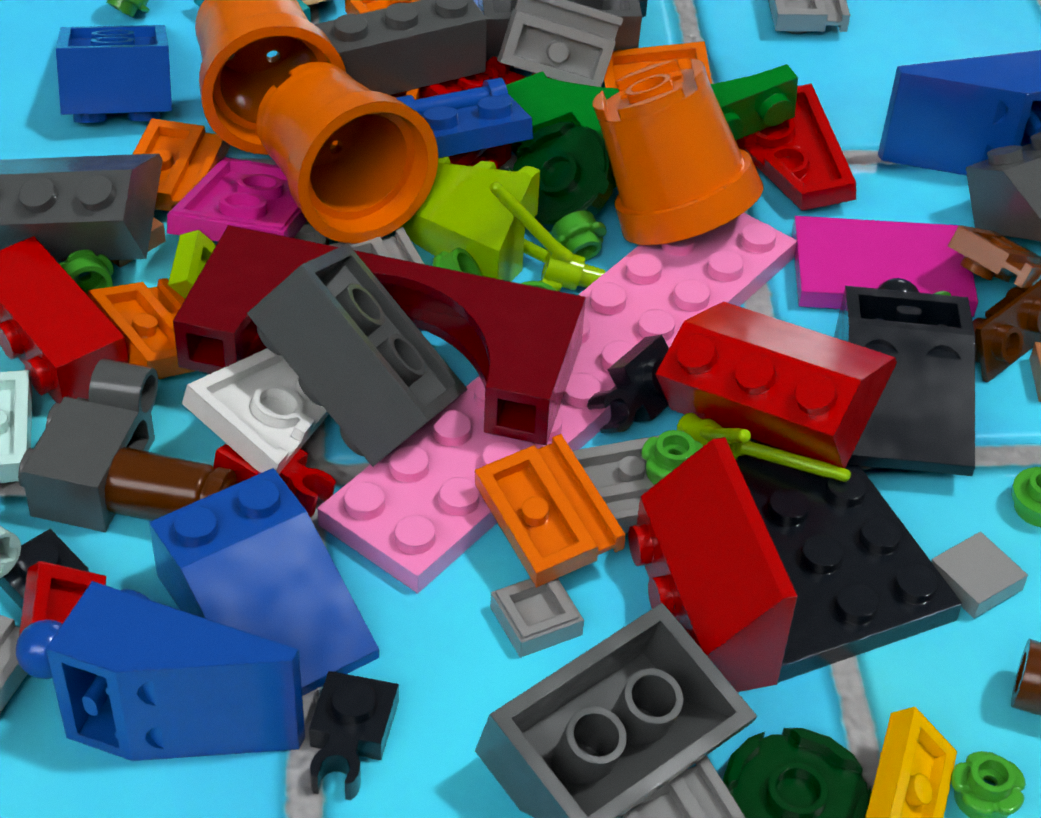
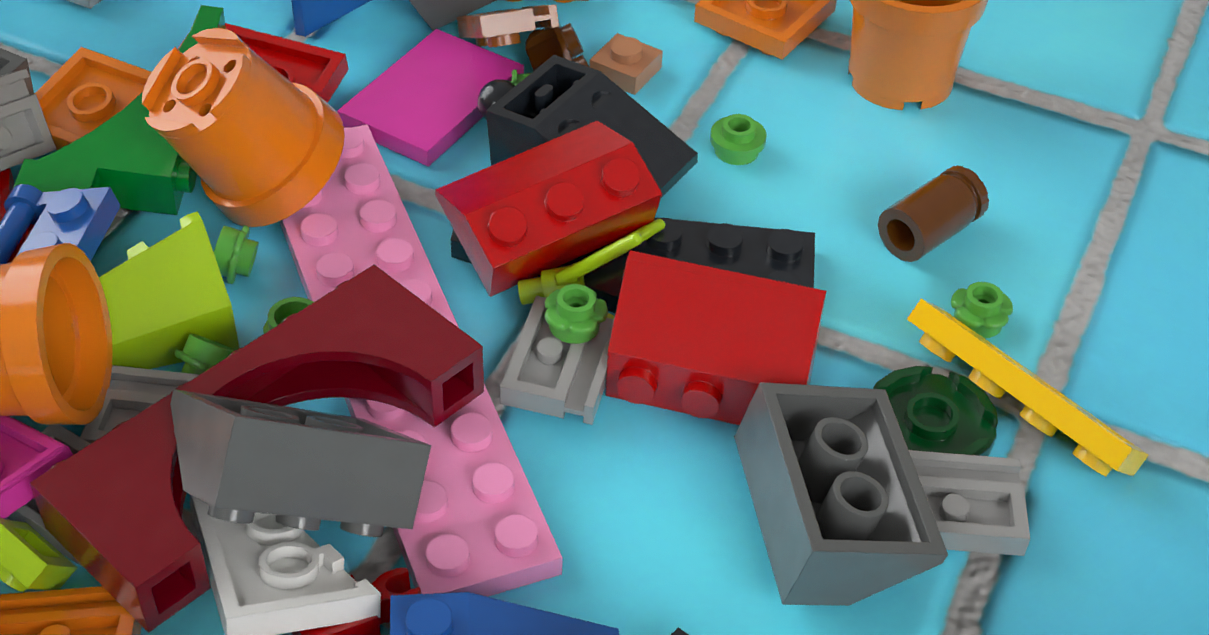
camera: 60 degrees left, 0 degrees up
(536, 616) = (650, 496): light grey tile -> none
(549, 510) = (569, 421): orange plate -> none
(560, 264) = (260, 282): lime plant -> none
(572, 170) = (154, 202): dark green tile -> none
(637, 389) = (457, 293): black plate -> none
(979, 574) = (786, 208): light grey tile -> none

